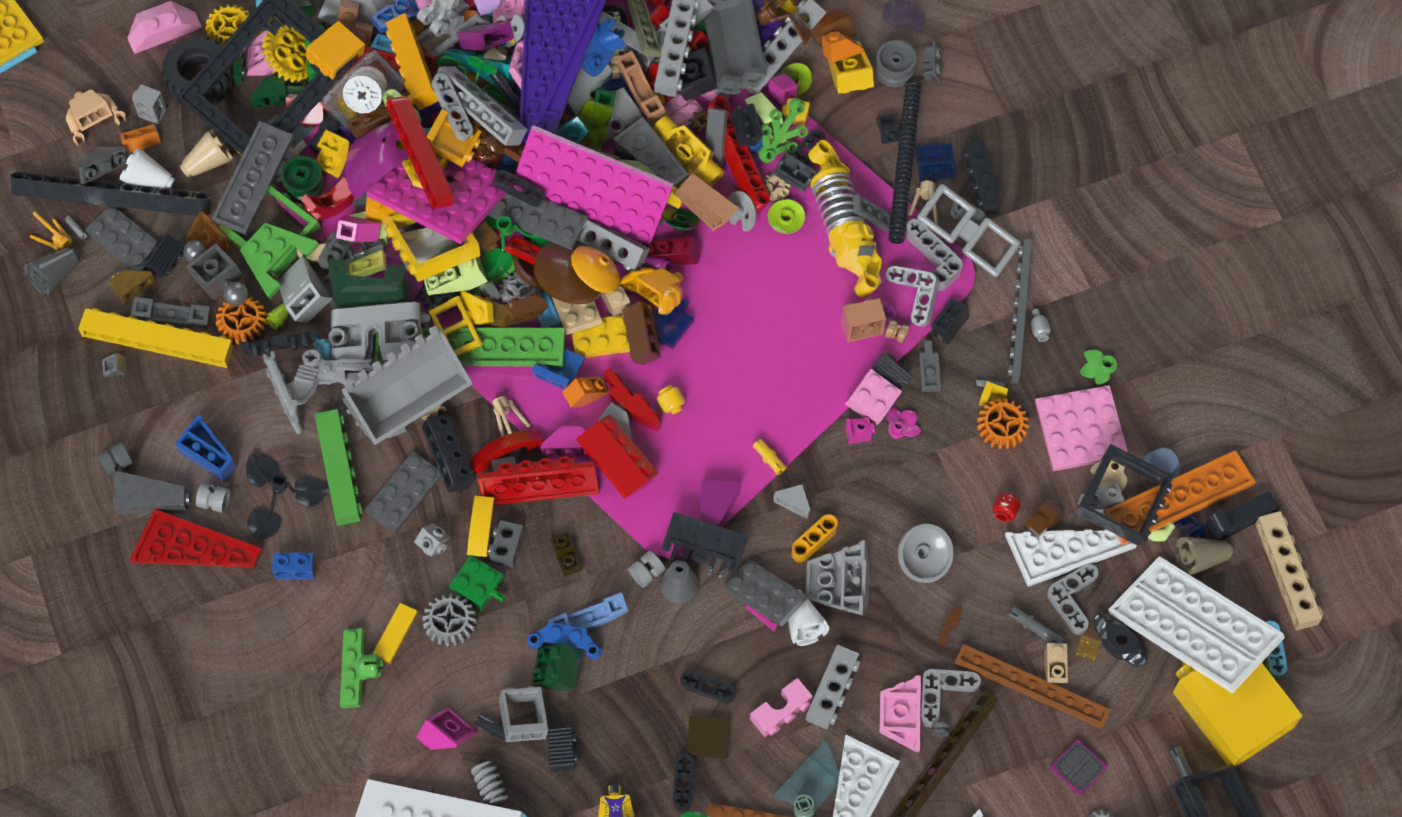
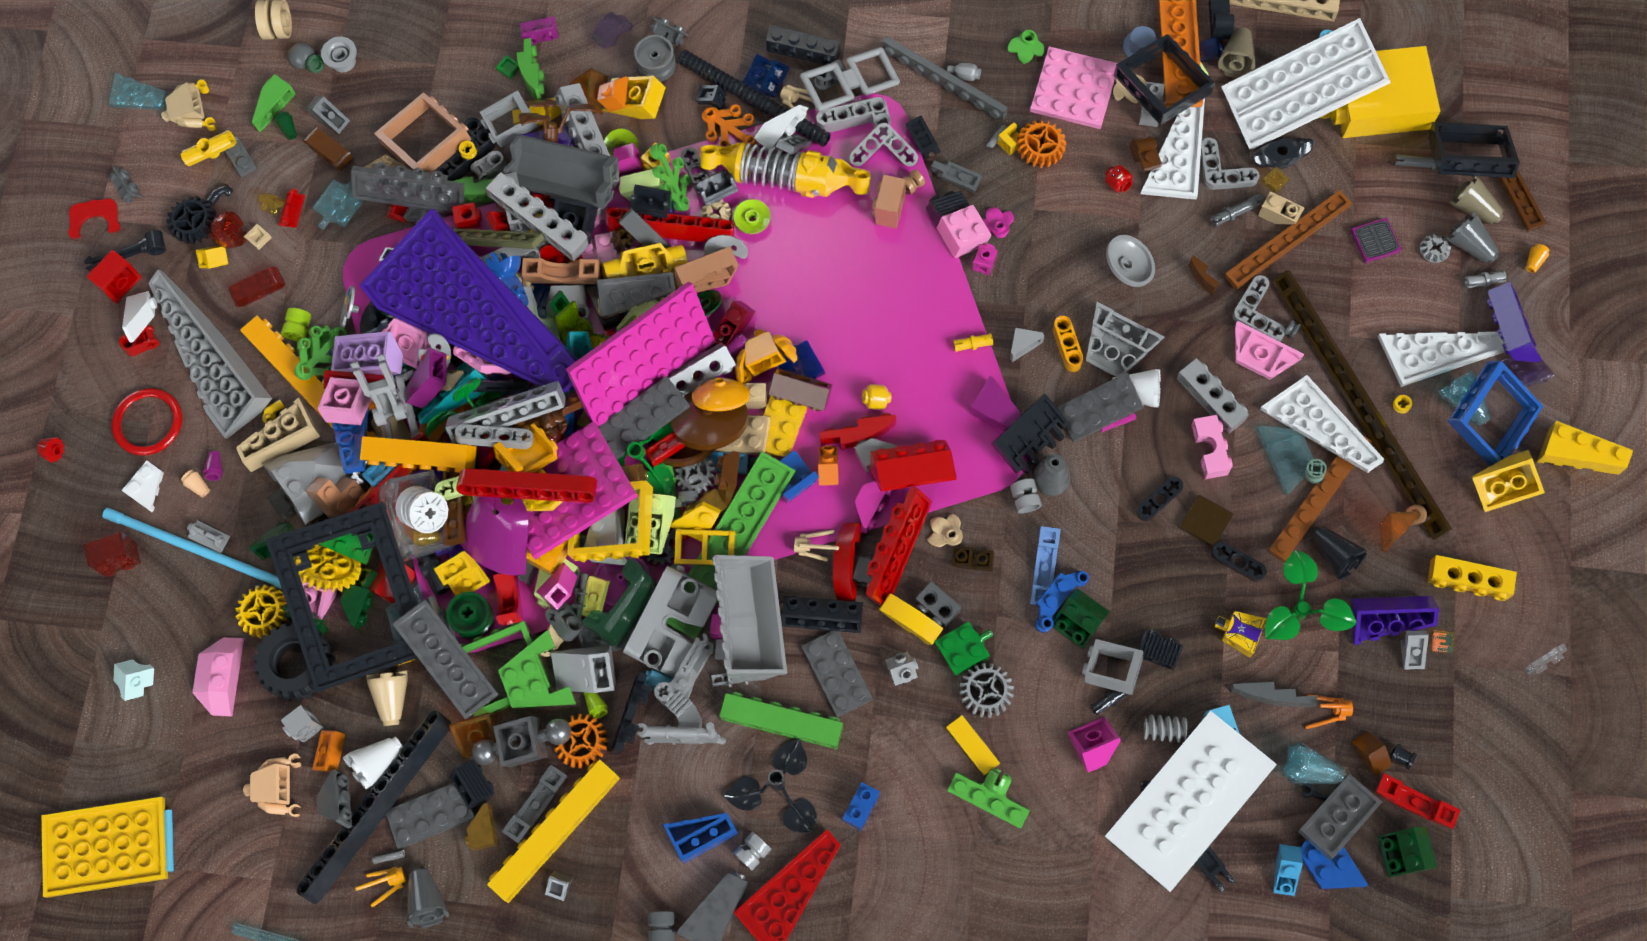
camera: 55 degrees left, 5 degrees up
(334, 49) = (364, 516): light orange panel -> none
(533, 190) = (602, 427): black beam -> none
(581, 517) = (943, 529): none -> tan plate
(865, 155) = (728, 125): none -> orange plant
(883, 194) = (780, 127): none -> white slope

